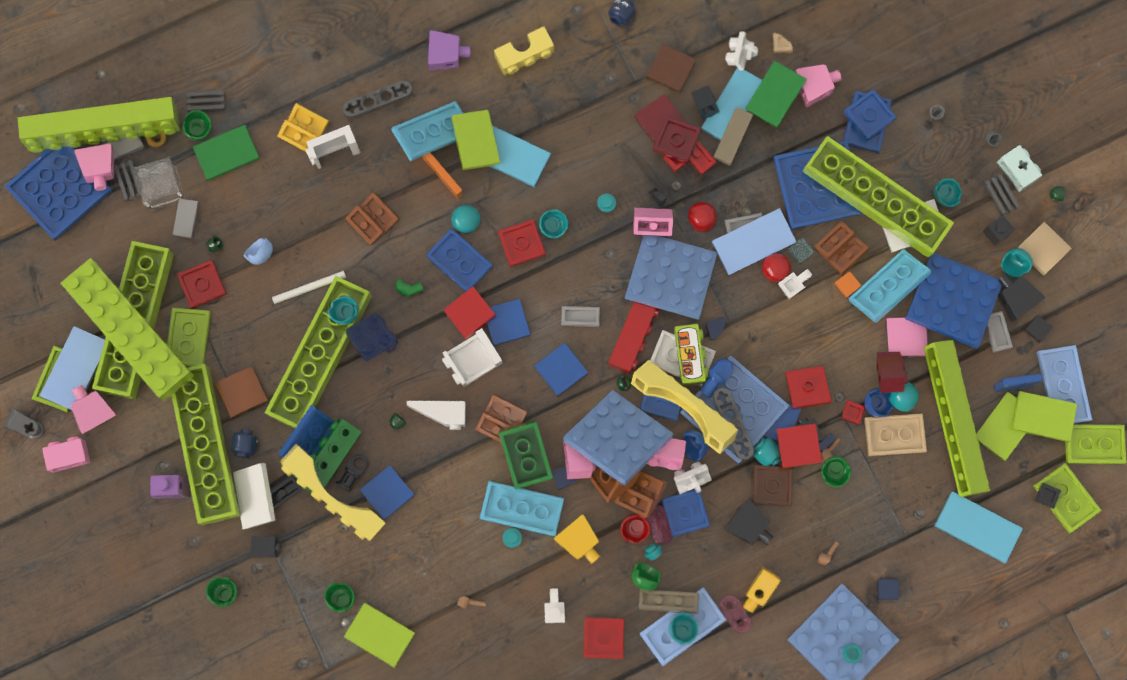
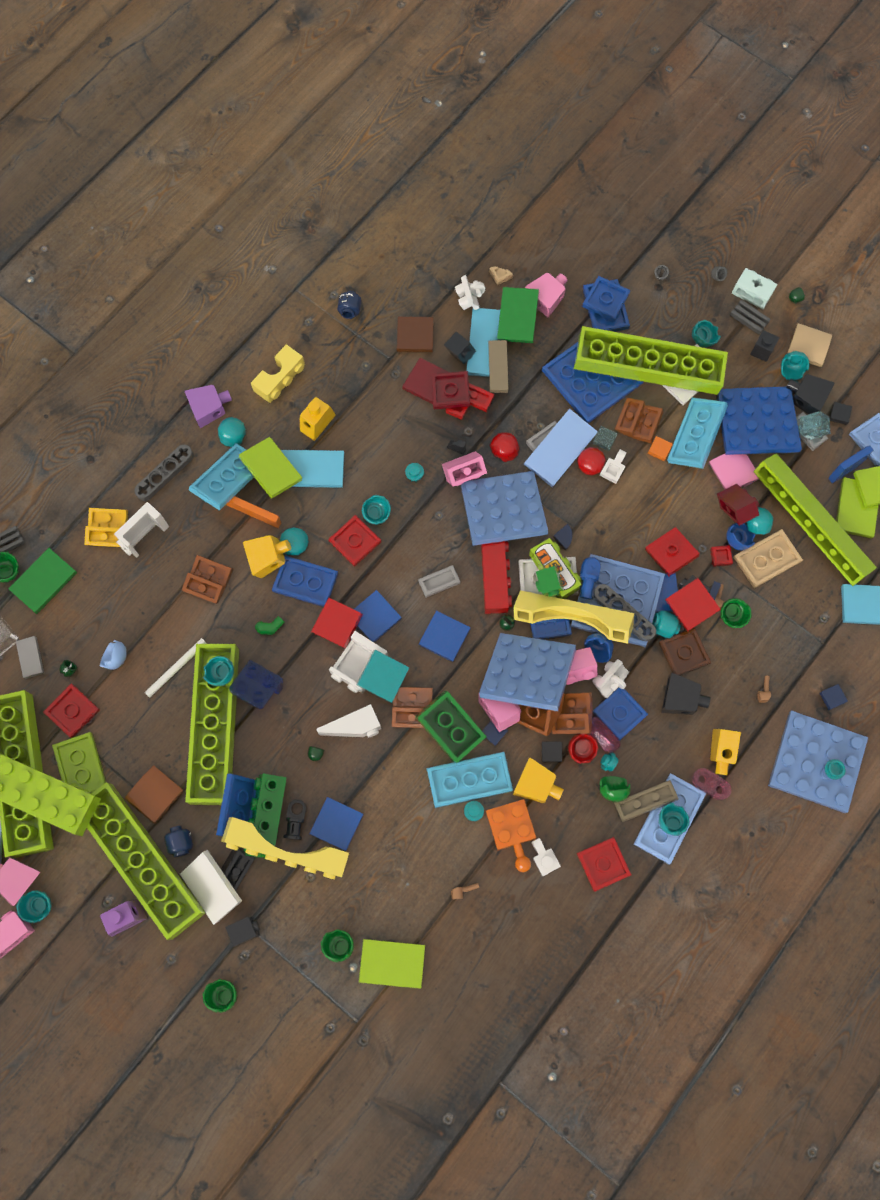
camera: 25 degrees left, 5 degrees down
(98, 442) = (34, 906): none -> teal hair
(434, 220) = (265, 554): none -> yellow torso
(456, 87) = (231, 431): none -> teal hair
(487, 381) = (382, 676): none -> teal tile
(539, 110) = (317, 416): none -> yellow torso
(540, 568) = (511, 827): none -> orange plate
(606, 518) = (551, 751): none -> black tile
(676, 365) = (549, 581): none -> green brick
(1002, 330) = (814, 425): none -> clear light blue brick

